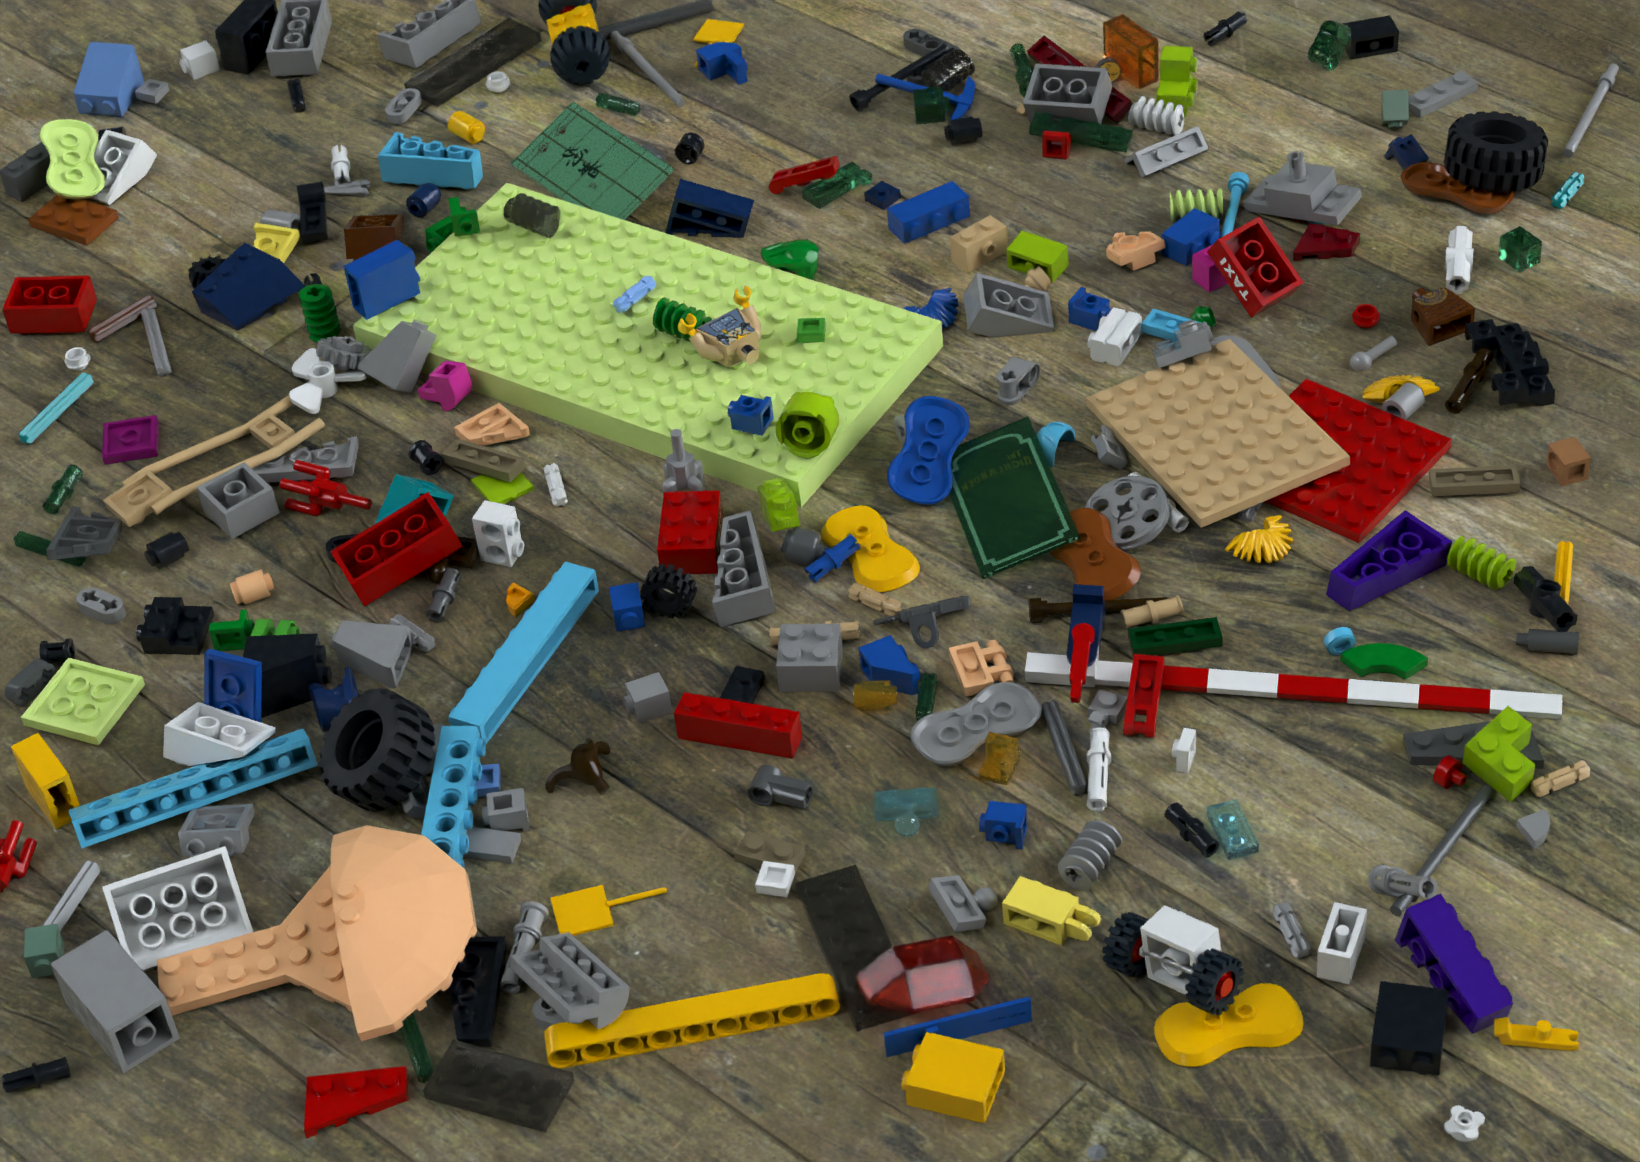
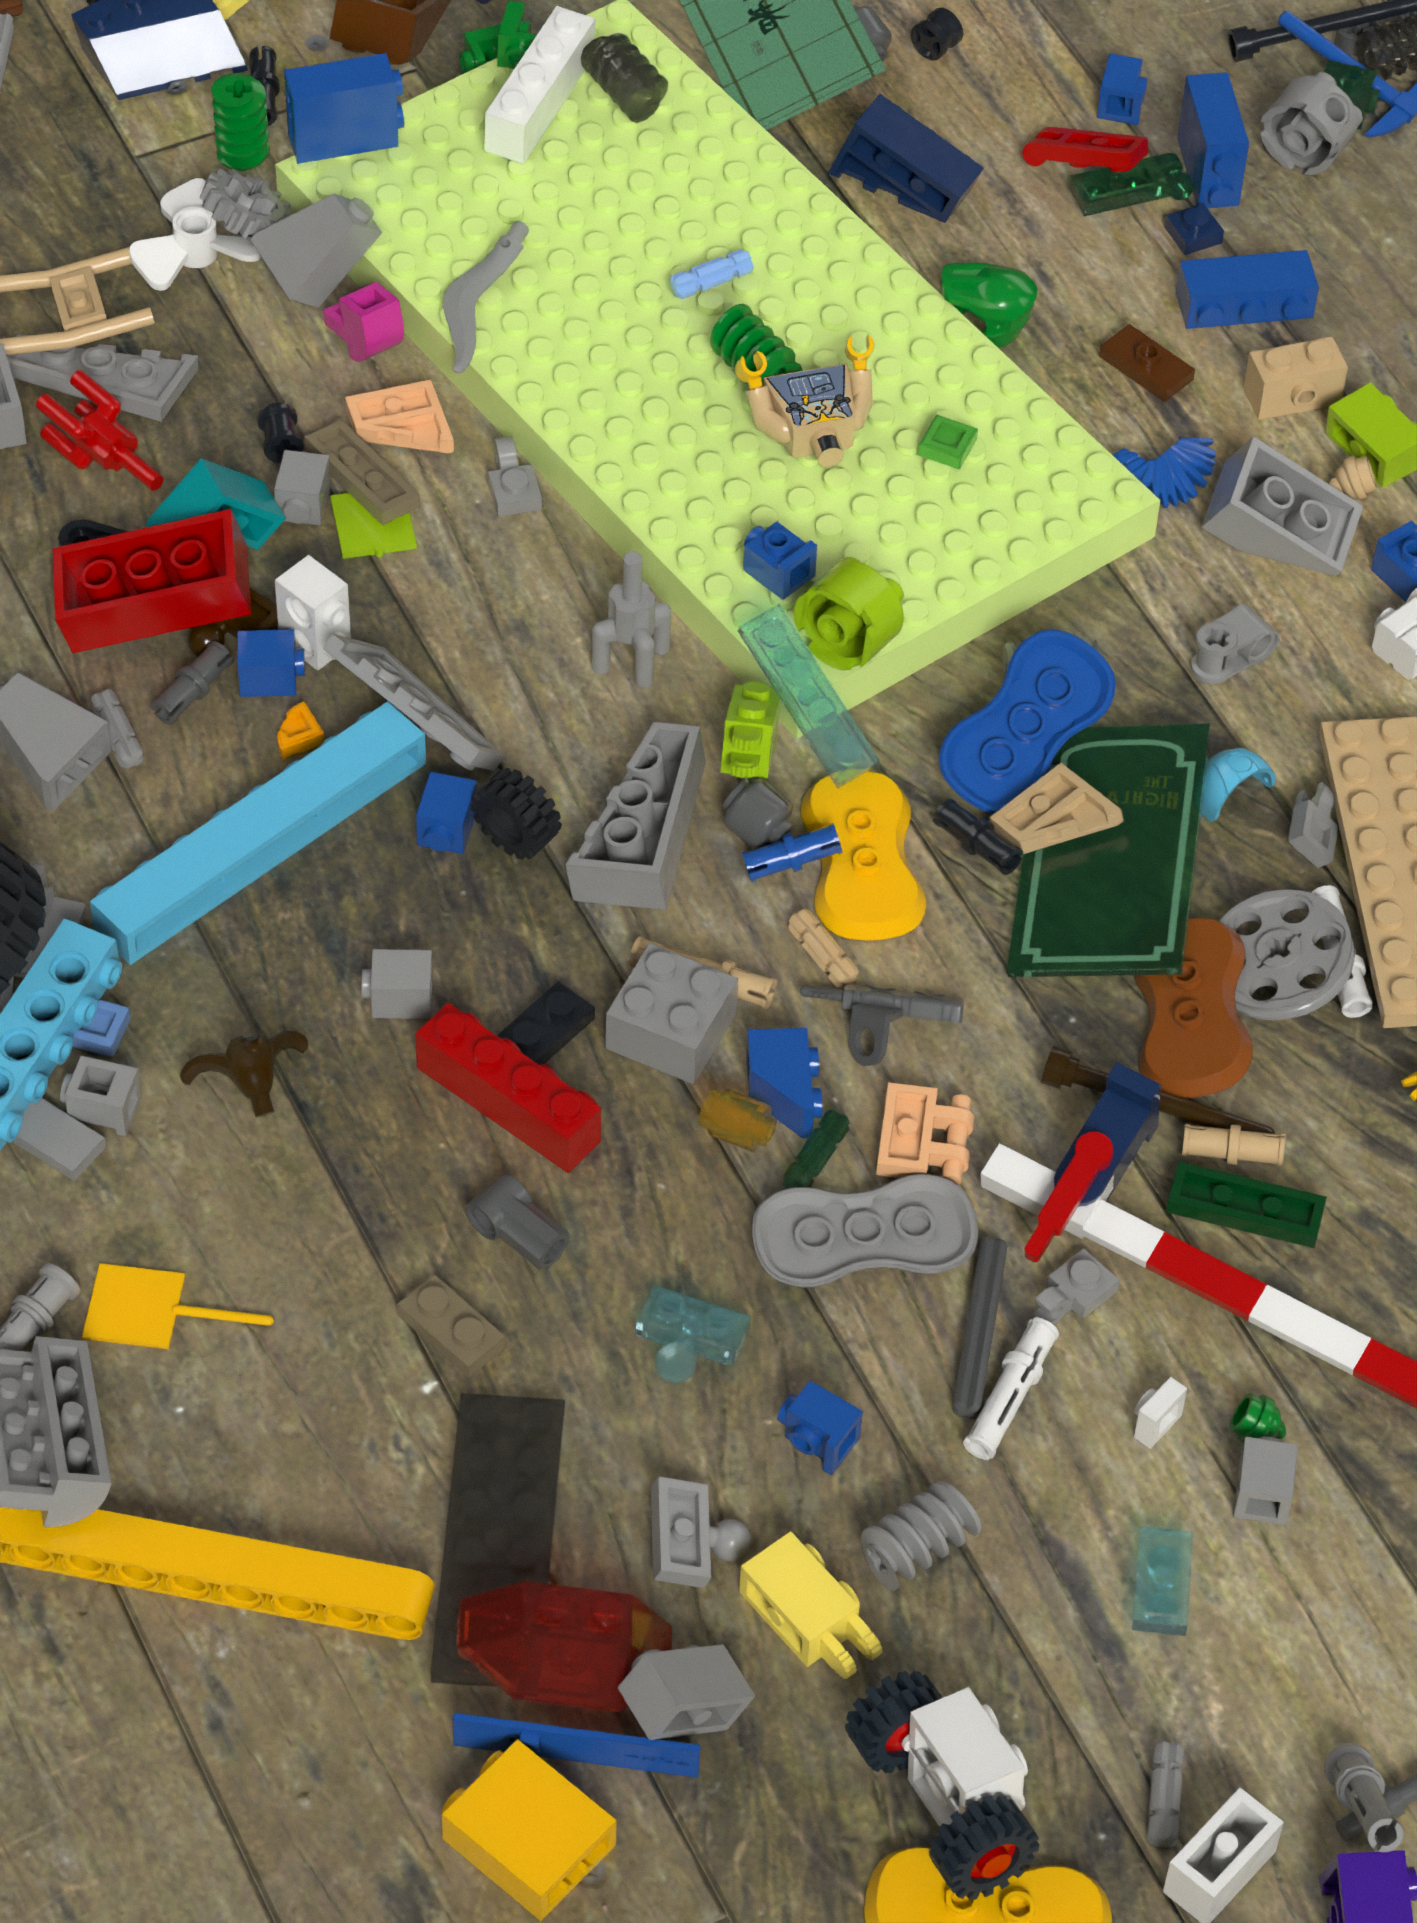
camera: 15 degrees right, 10 degrees up
(455, 477) = (303, 486): none -> light grey brick
(483, 569) = (269, 663): none -> blue brick
(486, 235) = (538, 85): none -> white brick
(499, 348) = (465, 291): none -> light grey piece
(549, 551) = (416, 700): none -> light grey wing
(555, 485) = (448, 555): white axle -> none
(572, 440) = (511, 485): none -> light grey plate
(691, 531) = (600, 719): red brick -> none
(775, 879) = (434, 1374): white plate -> none
(802, 475) = (808, 695): none -> clear light blue plate
(807, 142) = (1122, 90): none -> blue brick
(872, 146) = (1213, 140): none -> blue brick
(892, 265) = (1147, 362): none -> reddish brown plate
(920, 122) = (1310, 124): none -> light grey brick
(929, 516) = (977, 836): none -> black pin
(963, 130) = (1375, 160): black brick -> none
(967, 487) = (1055, 811): none -> tan wing
(1000, 759) = (872, 1310): clear yellow panel -> none
(1006, 973) = (685, 1691): none -> light grey brick
(1144, 695) = (1142, 1290): red plate -> none
(1203, 840) = (1101, 1554): black pin -> none
(1239, 735) = (1257, 1418): none -> green plate
(1260, 761) = (1265, 1480): none -> light grey brick

